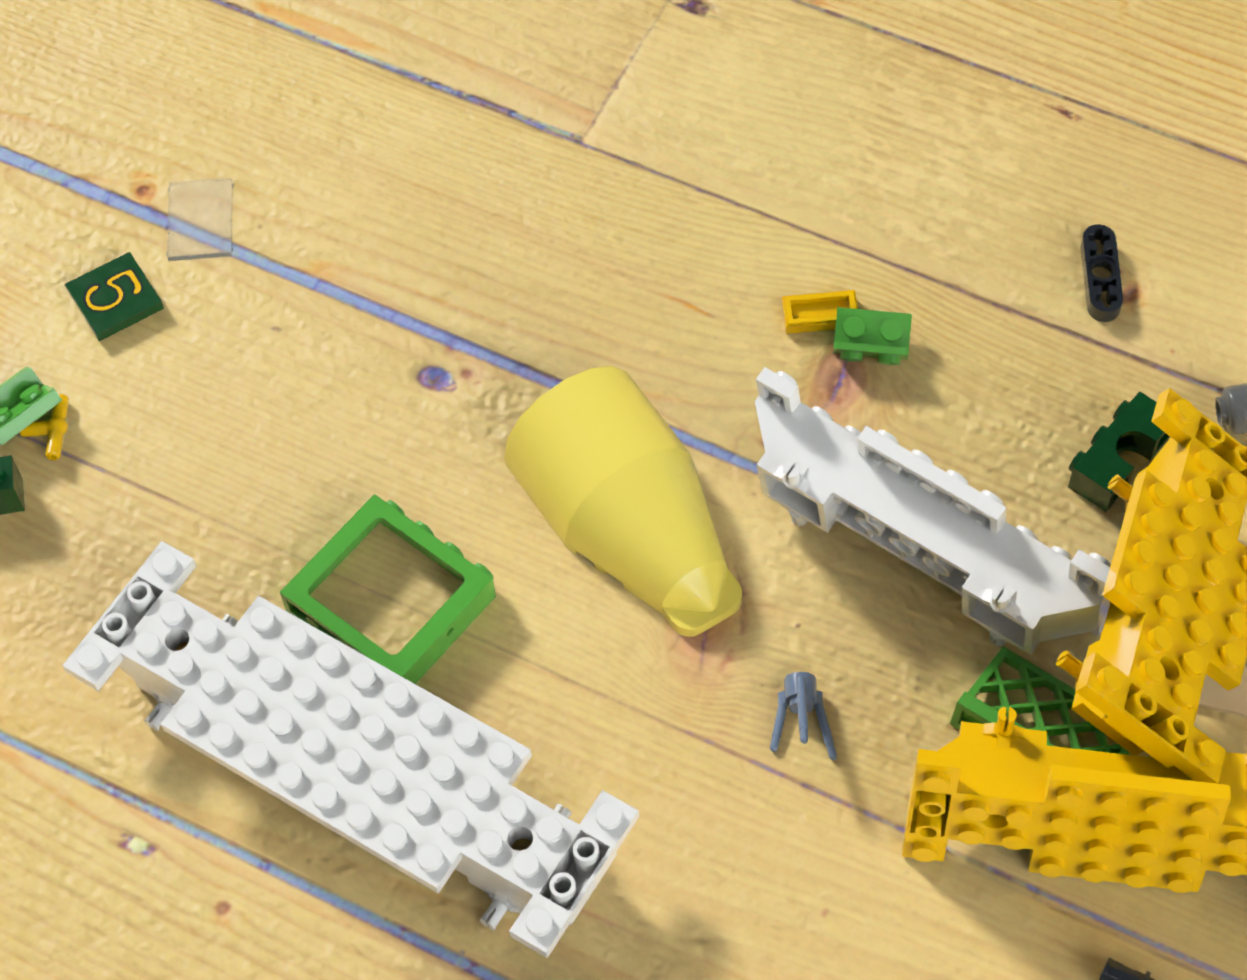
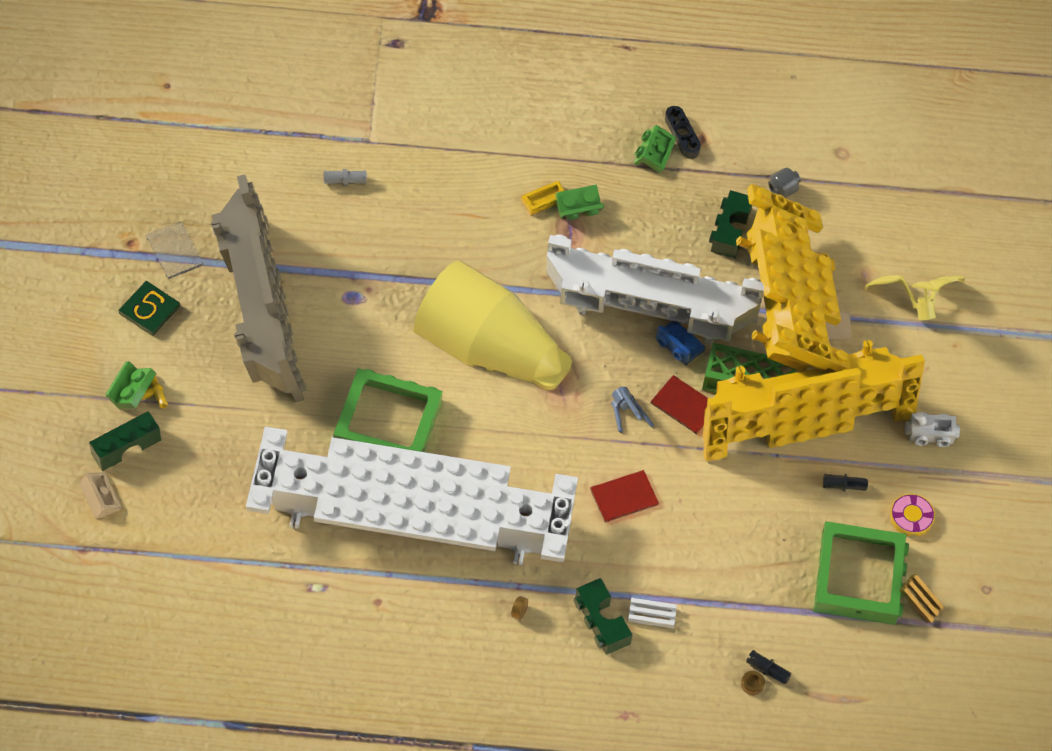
camera: 30 degrees left, 0 degrees up
(270, 320) = (266, 332): none -> dark tan piece
(512, 184) = (345, 177): none -> light grey pin
(728, 869) = (624, 496): none -> clear red piece
(896, 729) = (682, 404): none -> clear red piece
(946, 632) = (679, 342): none -> blue bracket
(1042, 285) = (655, 148): none -> bright green bracket

